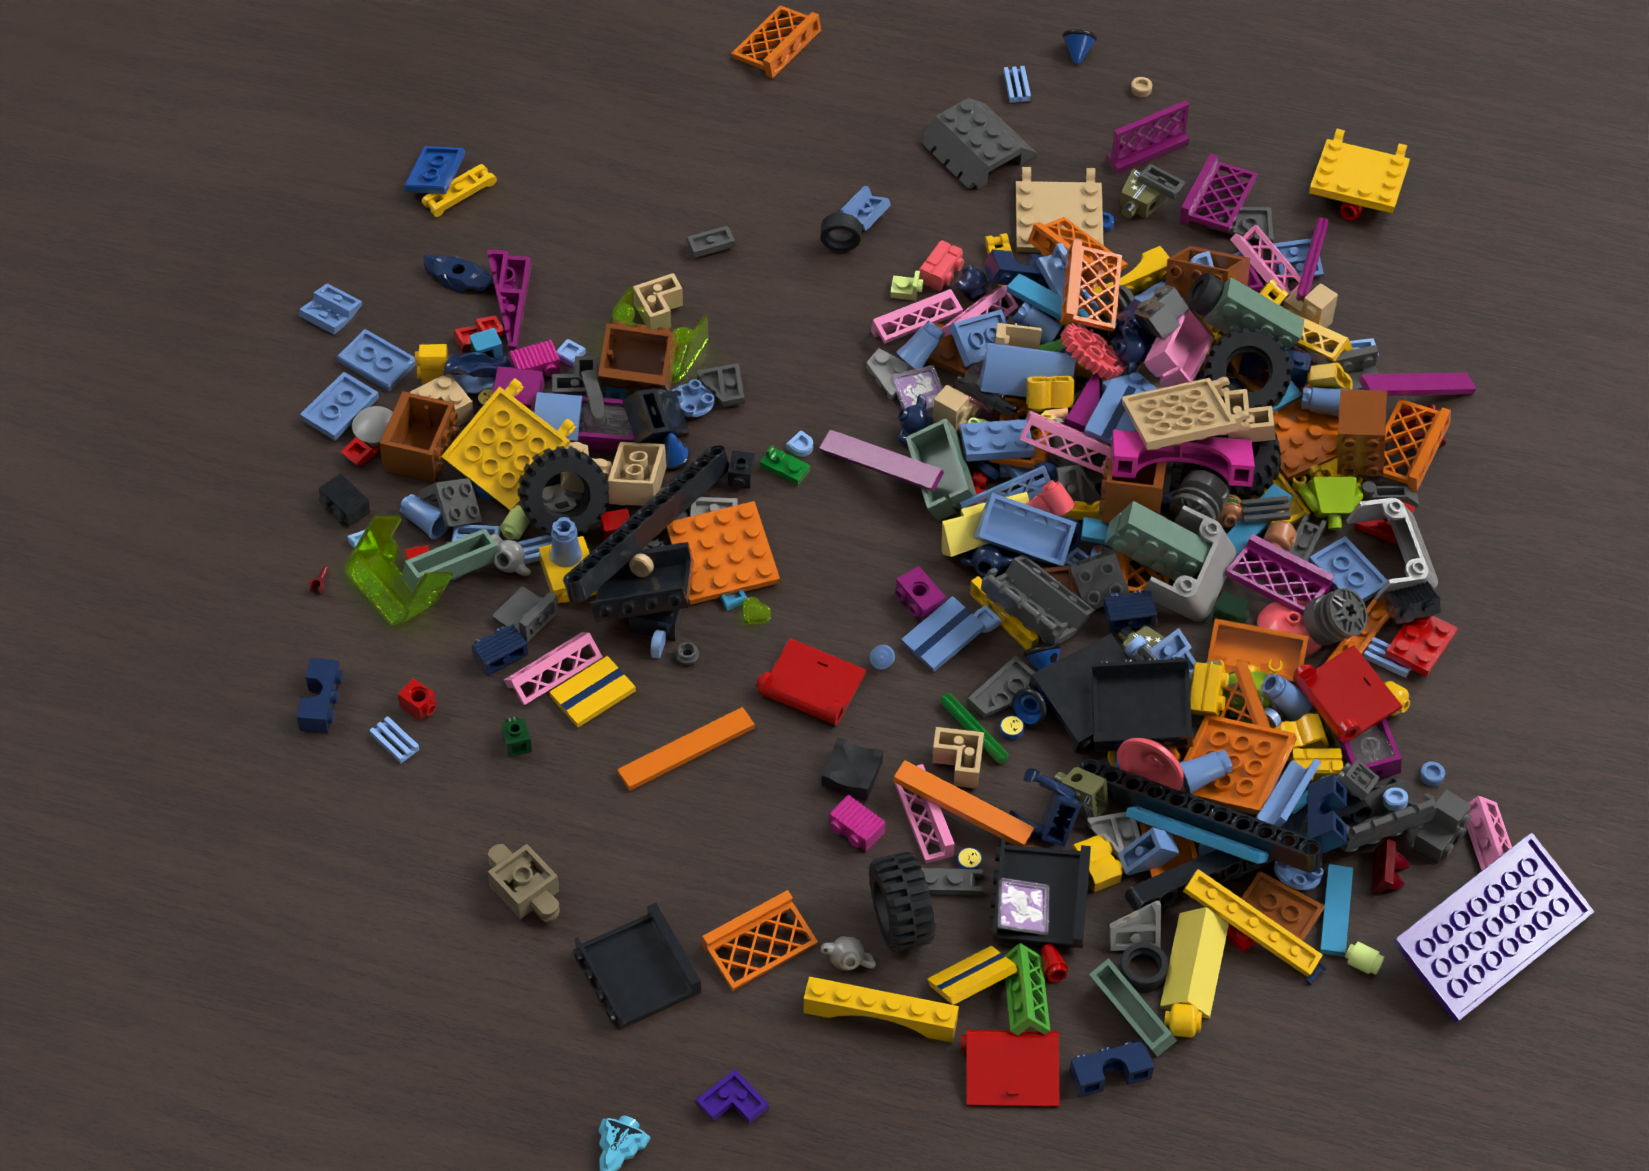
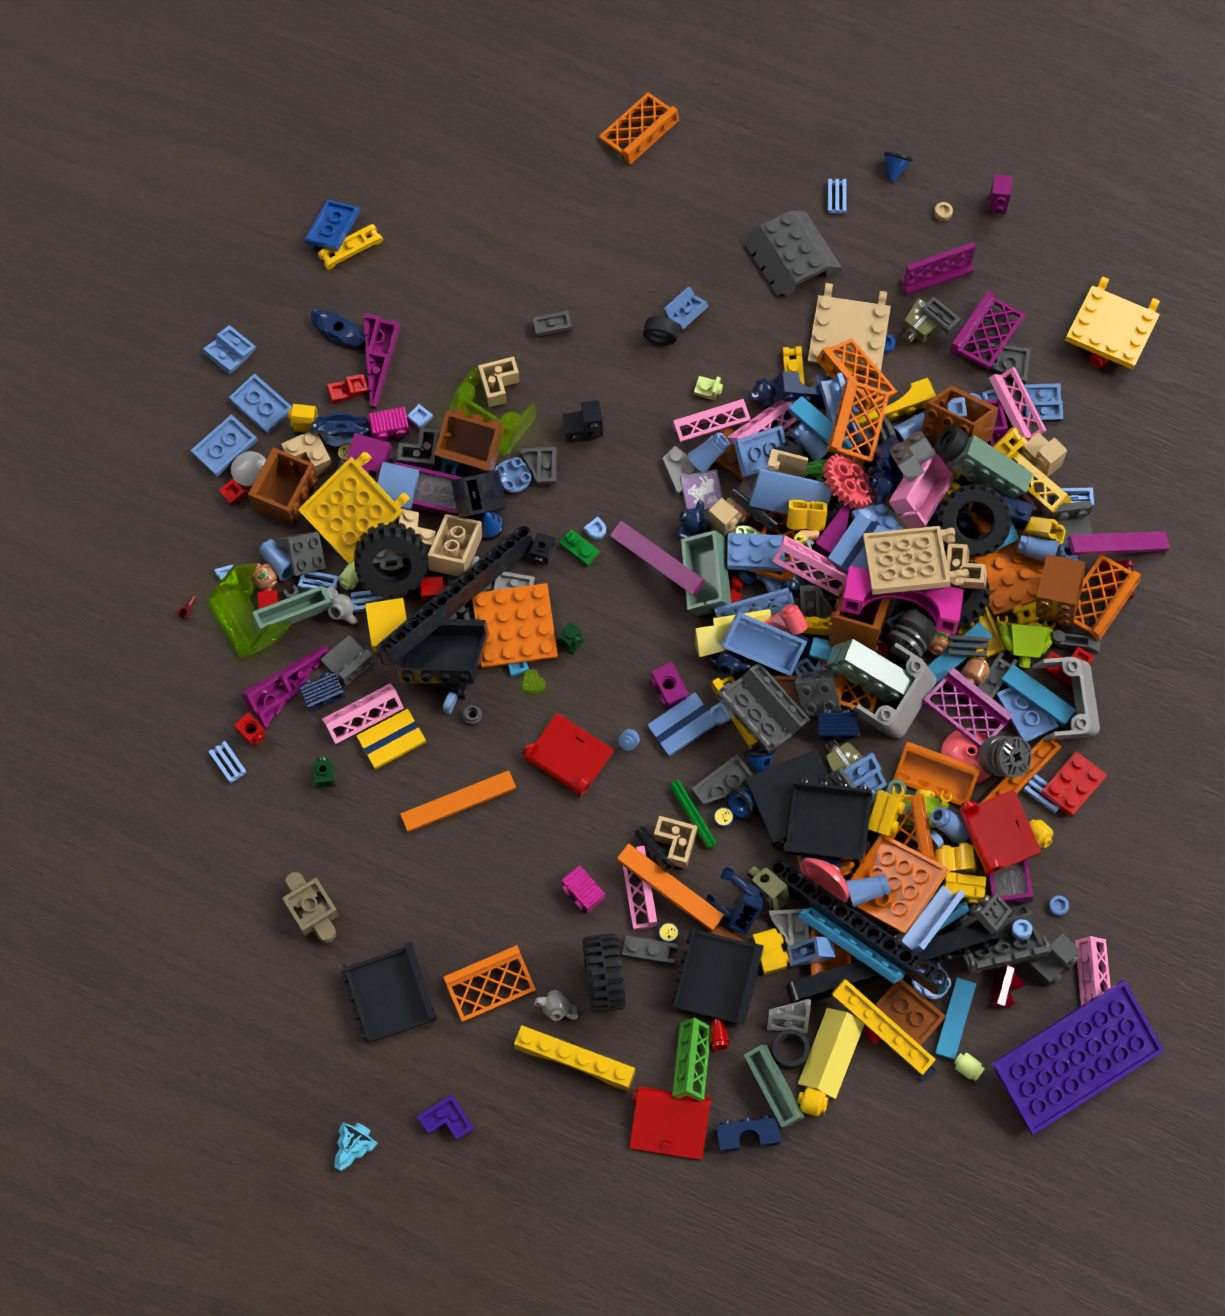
camera: 10 degrees right, 15 degrees up
(317, 712) = (170, 730): dark blue arch -> none
(344, 500) = (216, 536): black brick -> none
(409, 535) = (264, 577): none -> nougat head
(439, 658) = (271, 693): none -> magenta wedge
(486, 341) = (350, 401): dark azure panel -> none
(565, 545) = (385, 609): medium blue plant -> none
(594, 397) = (429, 471): dark grey piece -> none
(641, 565) = (445, 634): tan tile -> none
(770, 335) = (584, 423): none -> black brick
(792, 557) = (570, 637): none -> dark green brick
(852, 769) = (587, 839): black brick -> none
(939, 768) = (657, 854): none -> black pin
(941, 265) = (740, 371): coral brick -> none
(972, 975) = (651, 1038): yellow tile -> none
(1023, 906) = (701, 987): clear tile -> none
(1135, 645) = (835, 764): light blue tile -> none
(1203, 58) = (1000, 194): none -> magenta brick
(1231, 608) = (922, 734): clear green brick -> none
(1312, 259) = (1054, 407): magenta axle -> none
(1323, 800) = (959, 931): dark blue arch -> none
(1359, 552) = (1038, 695): none -> dark azure tile
(1412, 603) = (1072, 751): black brick -> none

